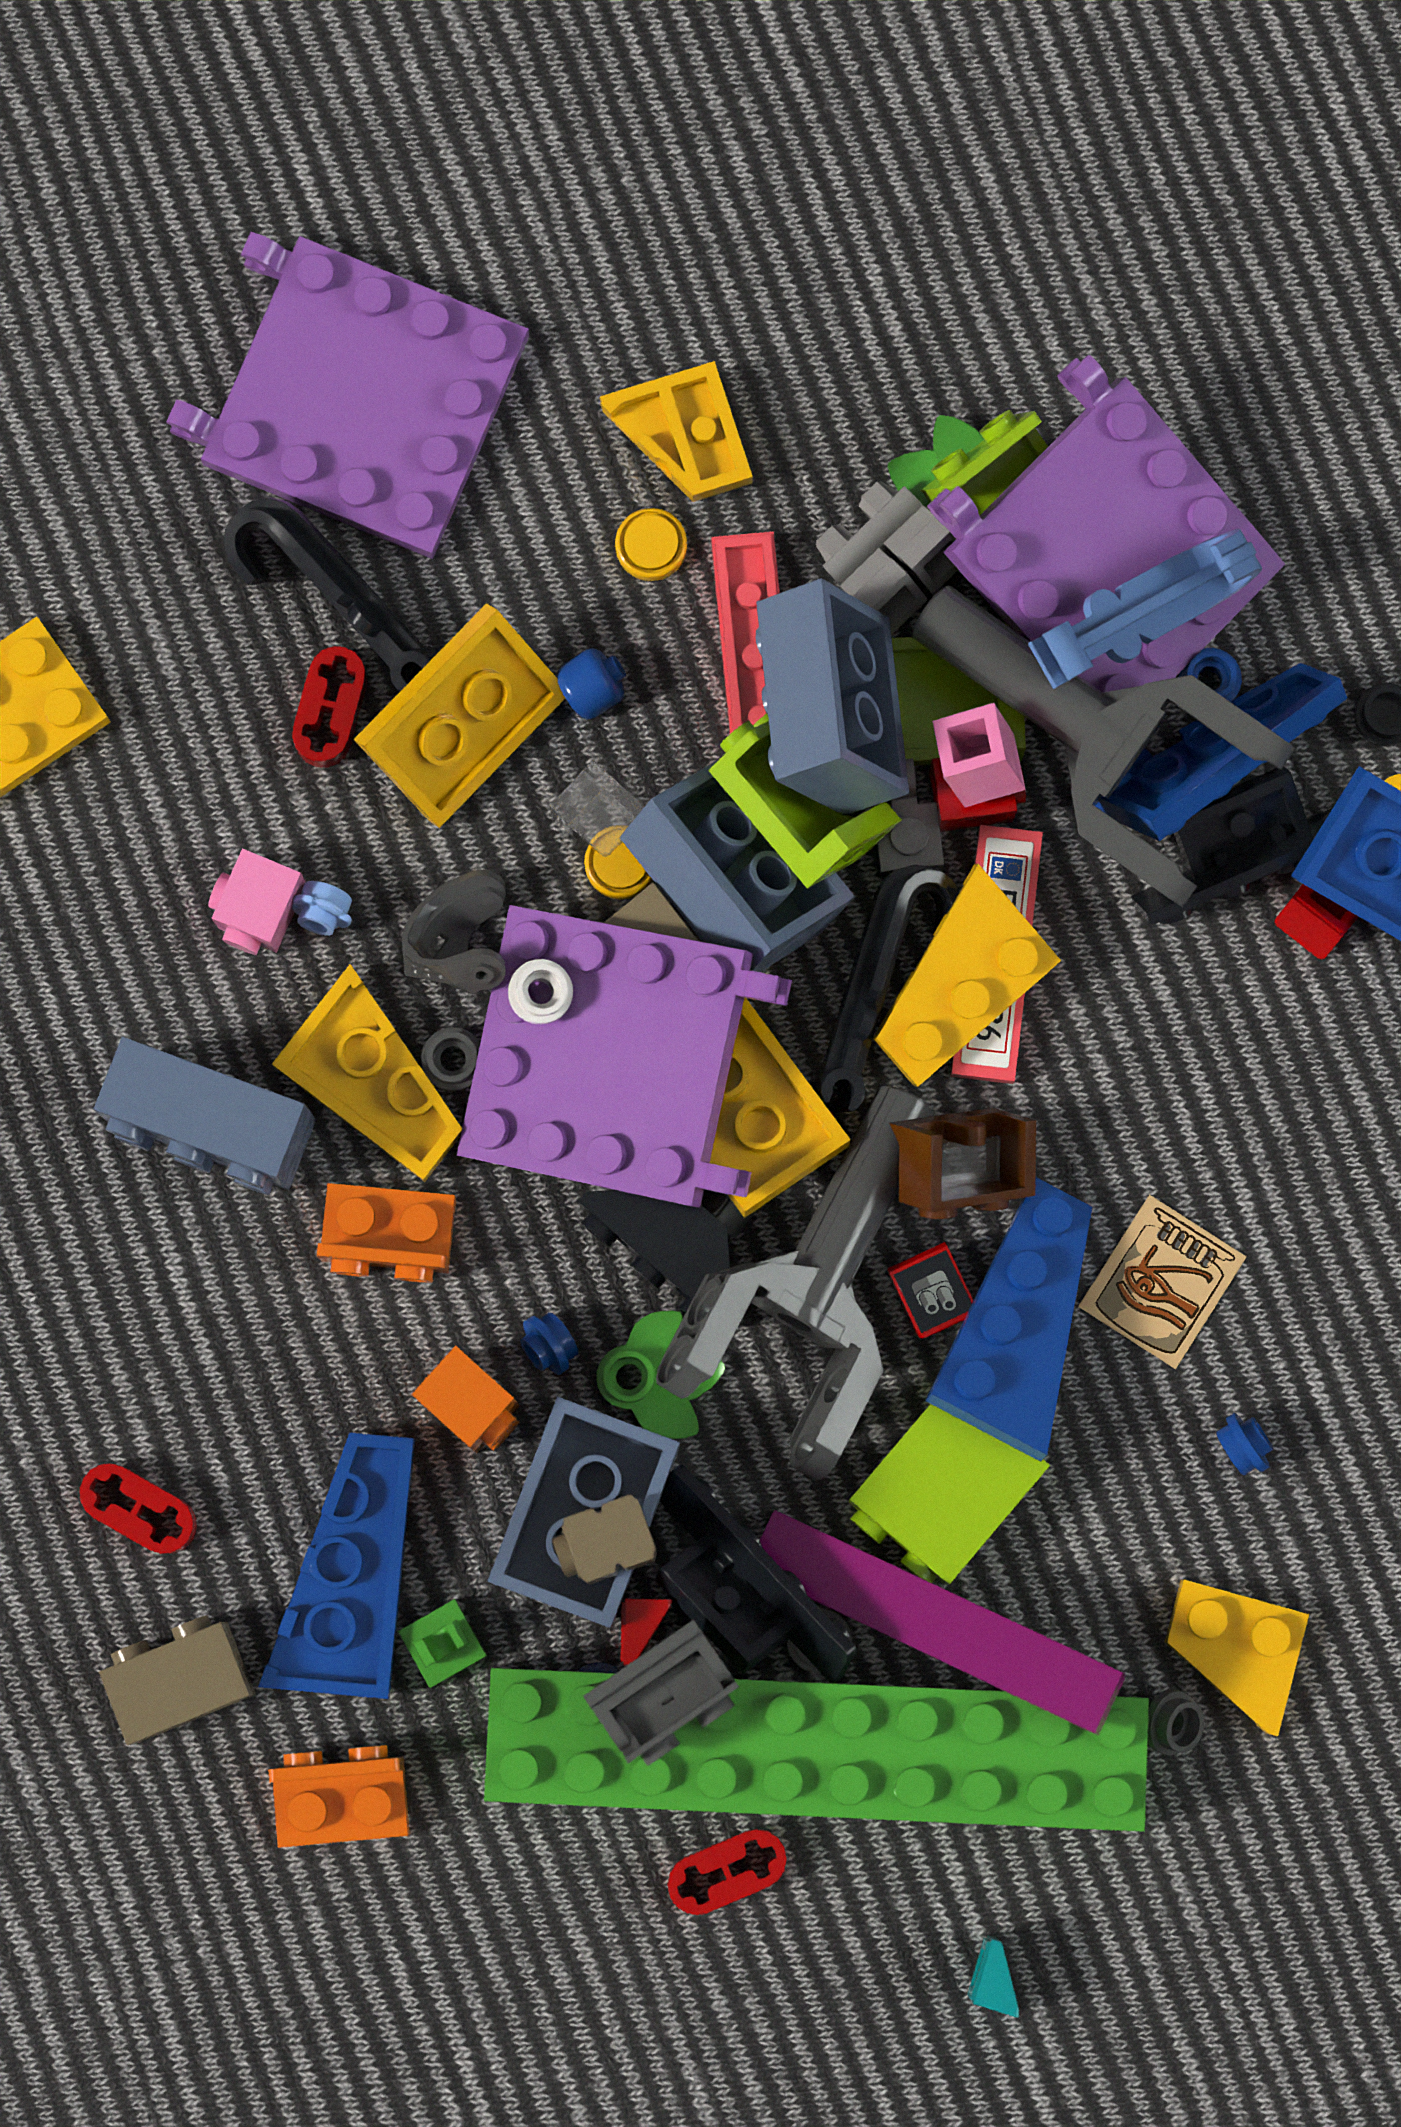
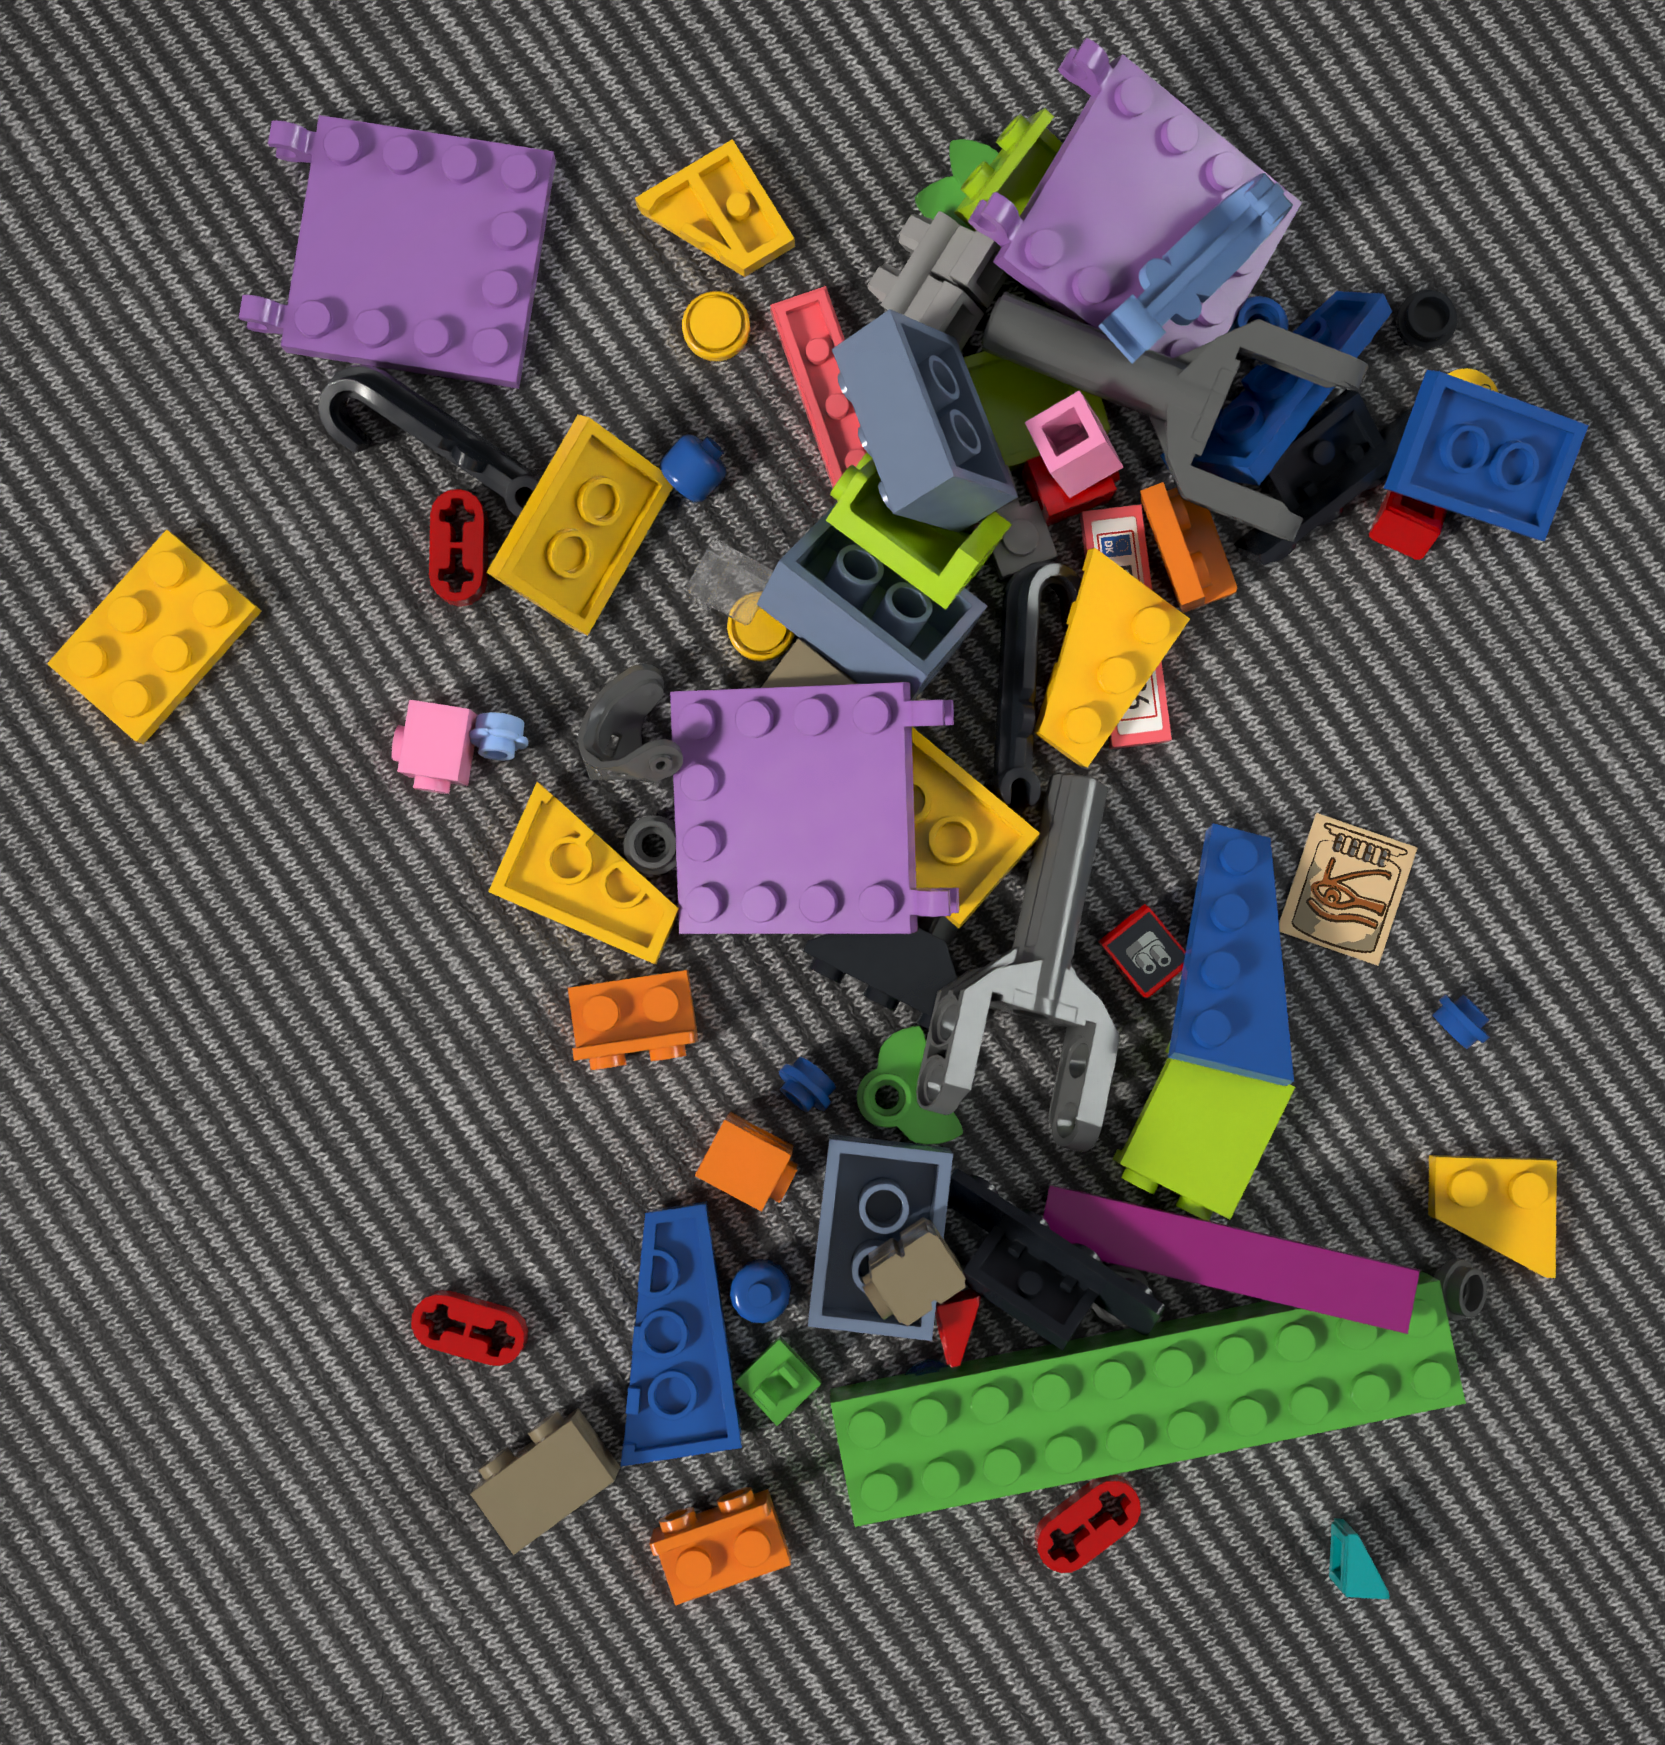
camera: 15 degrees left, 5 degrees up
(204, 1117) = (435, 959): sand blue brick -> none
(447, 1545) = (760, 1291): none -> blue piece
(540, 971) = (723, 747): white plate -> none
(662, 1693) = (998, 1396): dark grey hinge -> none
(965, 1161) = (1149, 825): reddish brown window -> none
(1078, 889) = (1188, 548): none -> orange bracket

